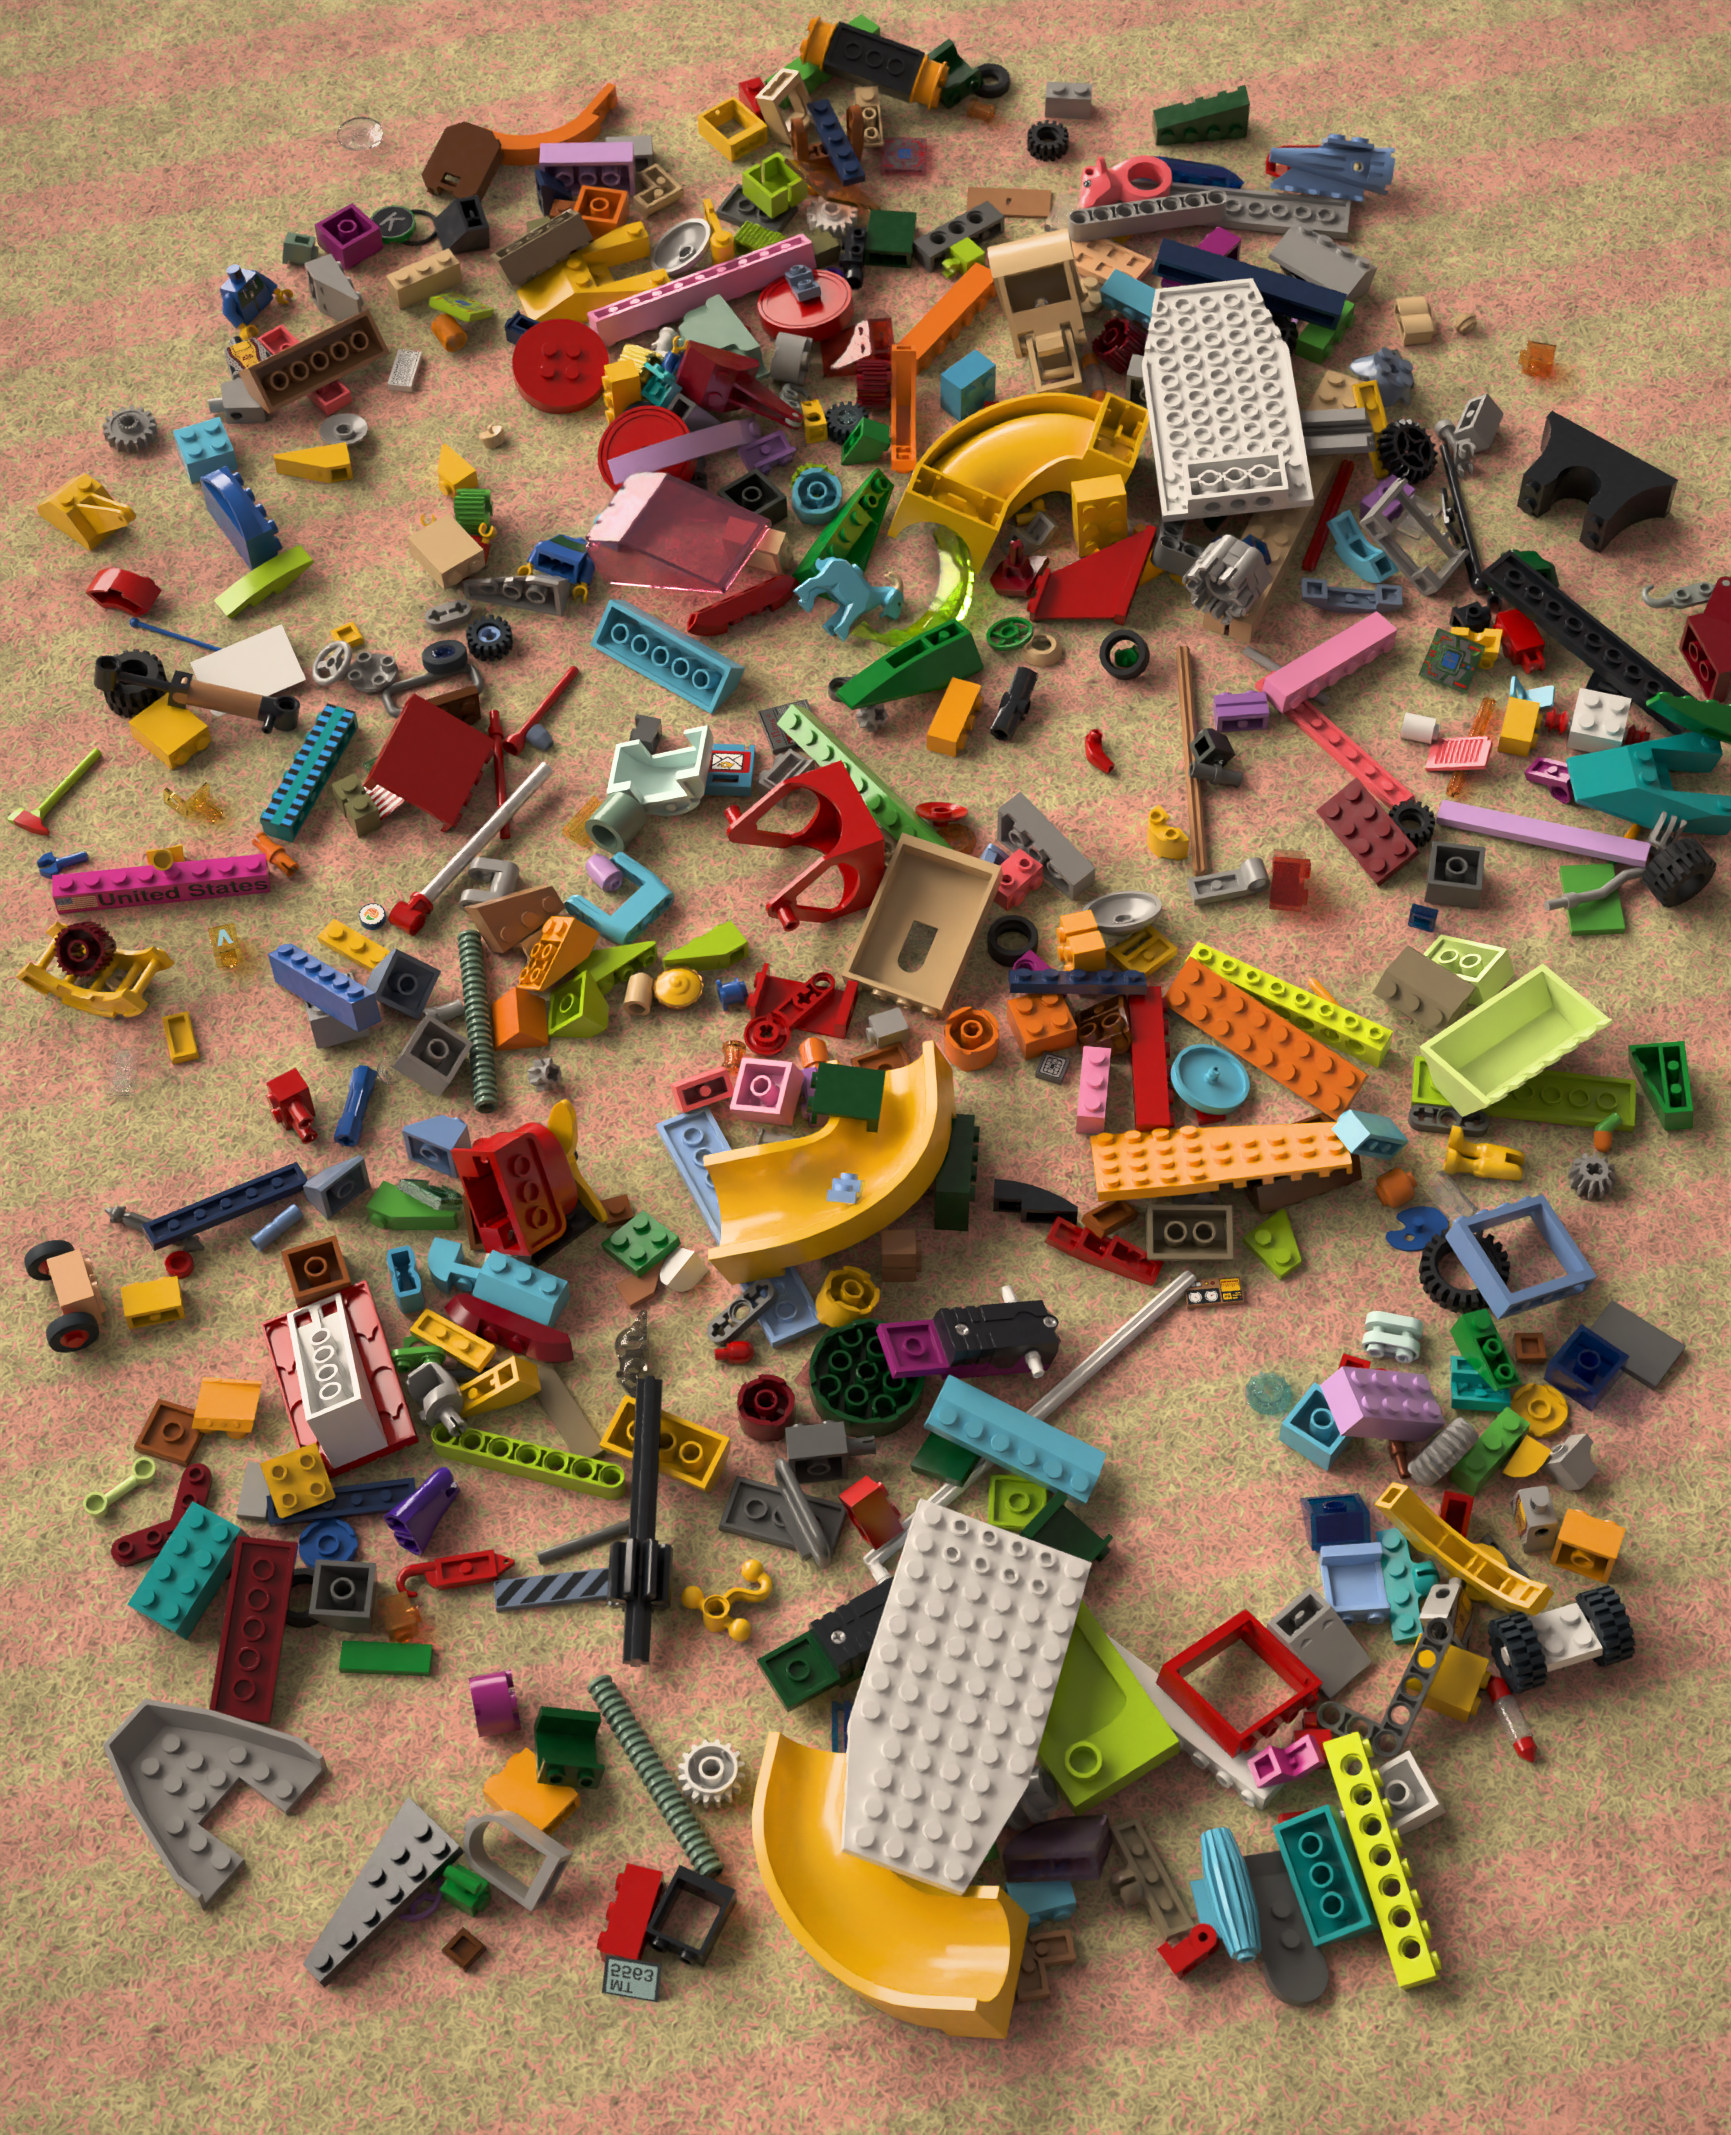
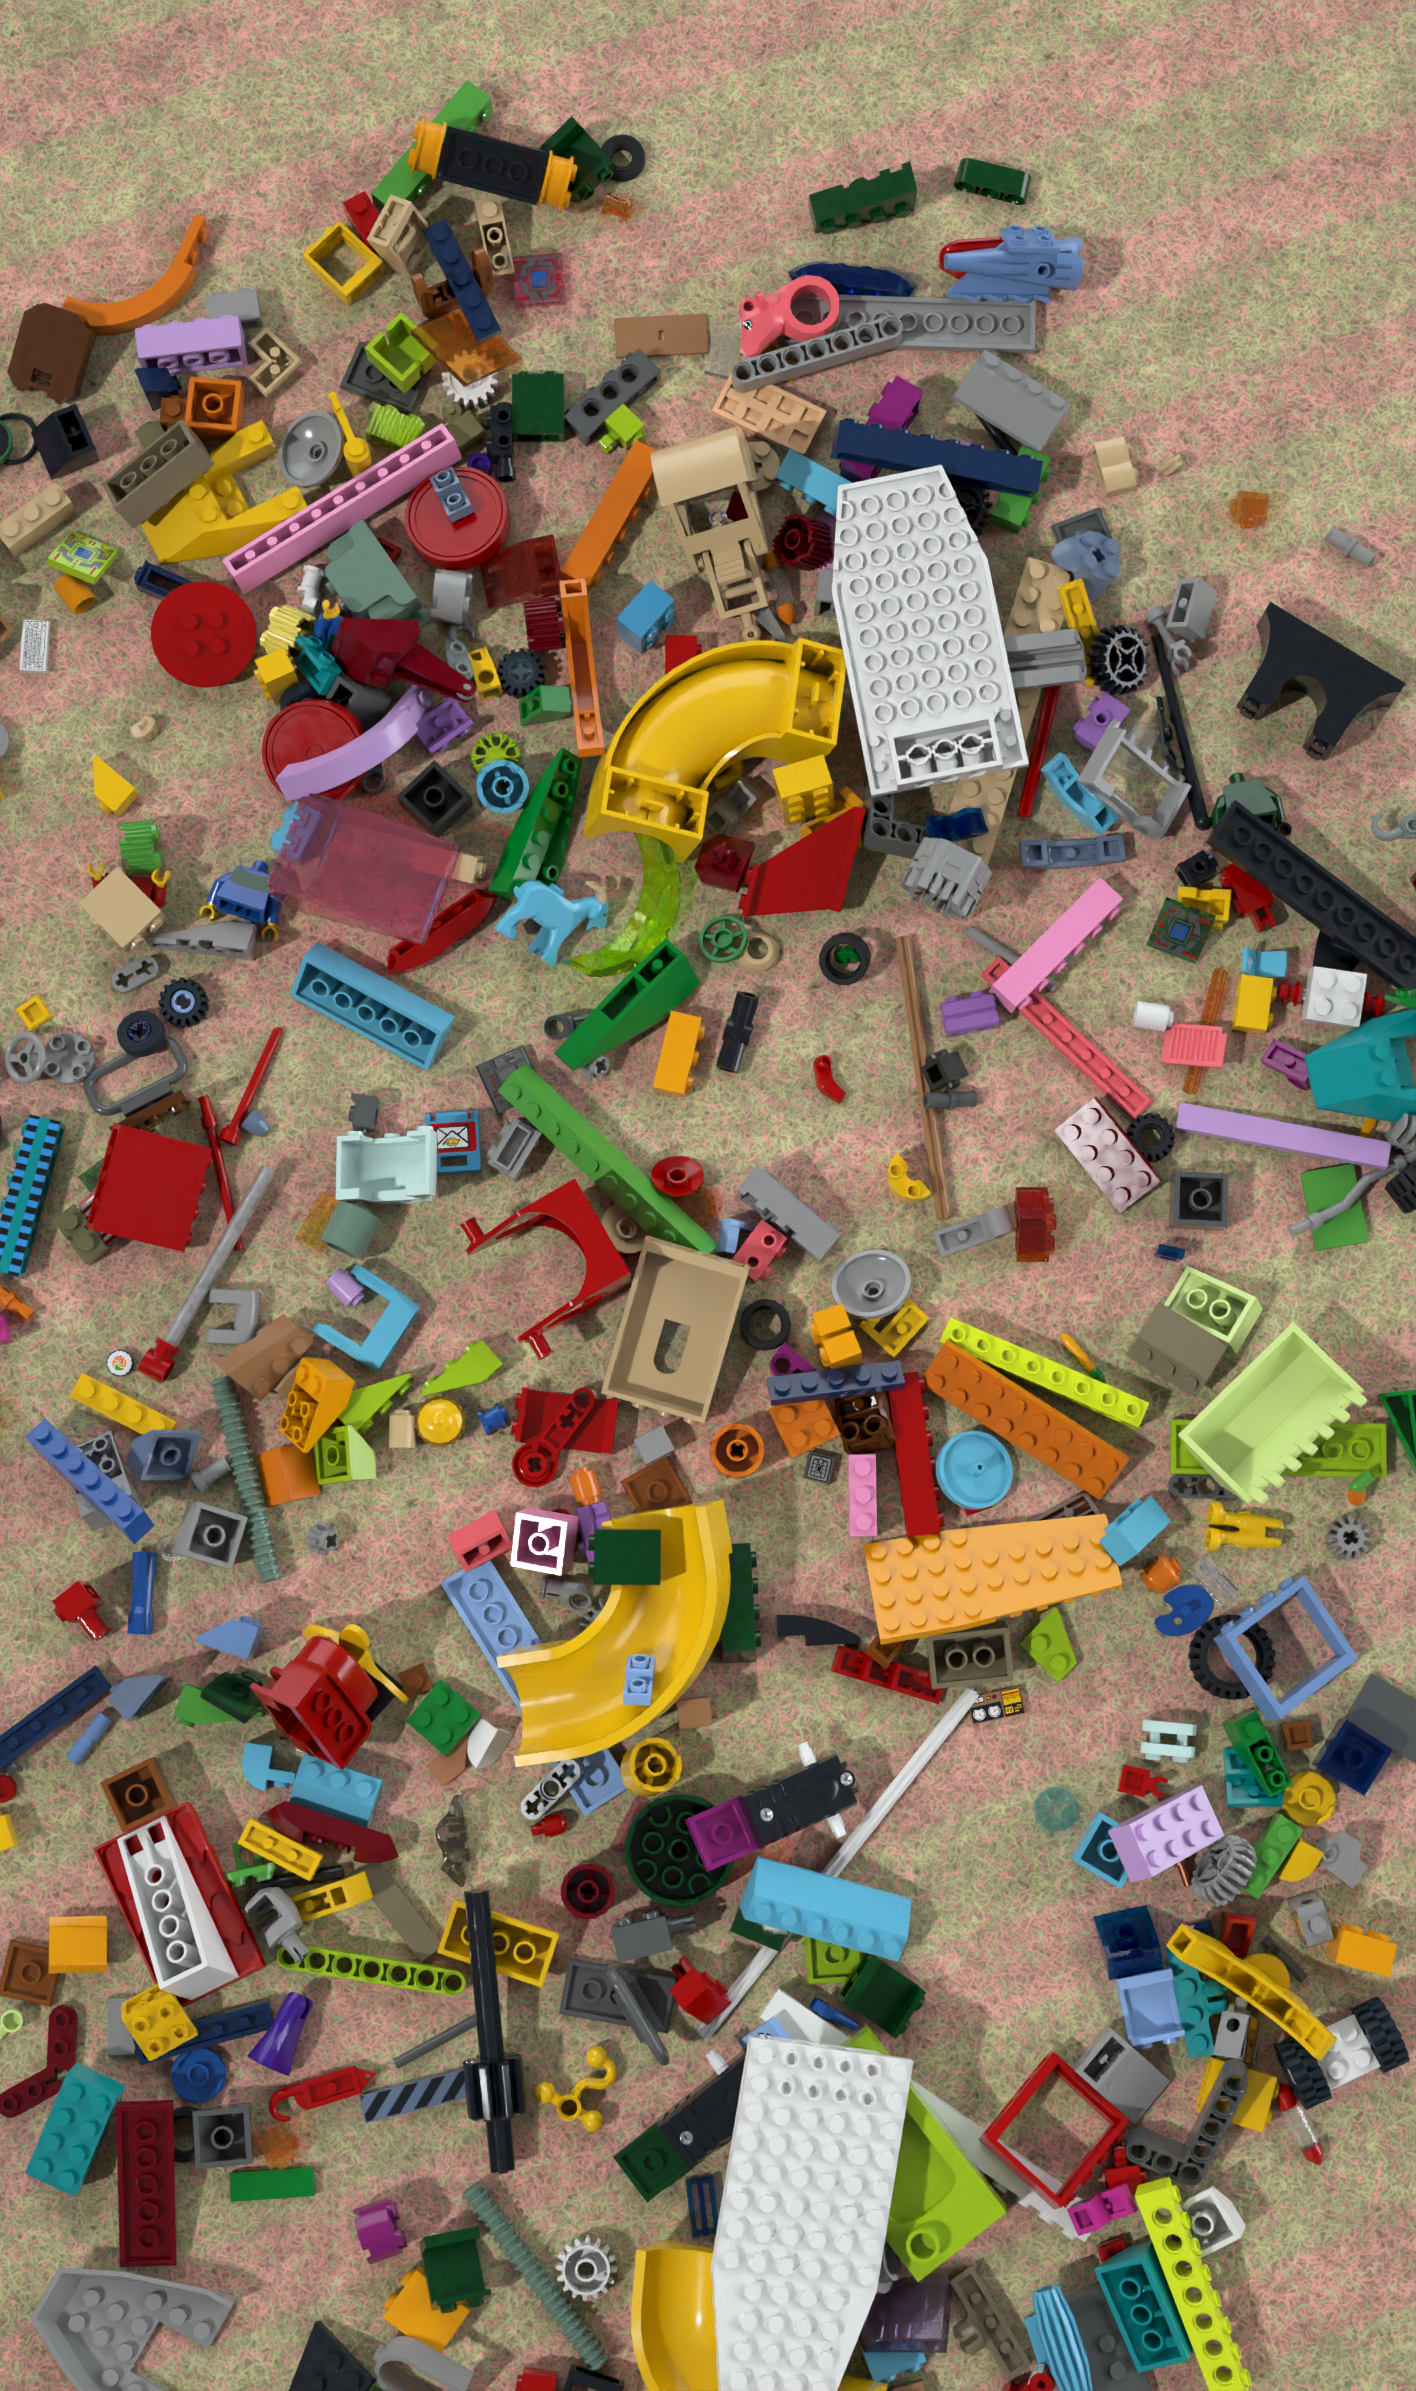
camera: 10 degrees left, 25 degrees up
(405, 1279) = (227, 1797): dark azure brick -> none
(733, 1057) = (507, 1500): clear orange bush -> none
(1047, 149) = (695, 258): black tyre -> none
(1068, 100) = (713, 183): light grey brick -> none
(1318, 117) = (992, 180): none -> dark green beam
(1631, 395) = (1350, 546): none -> light grey pin

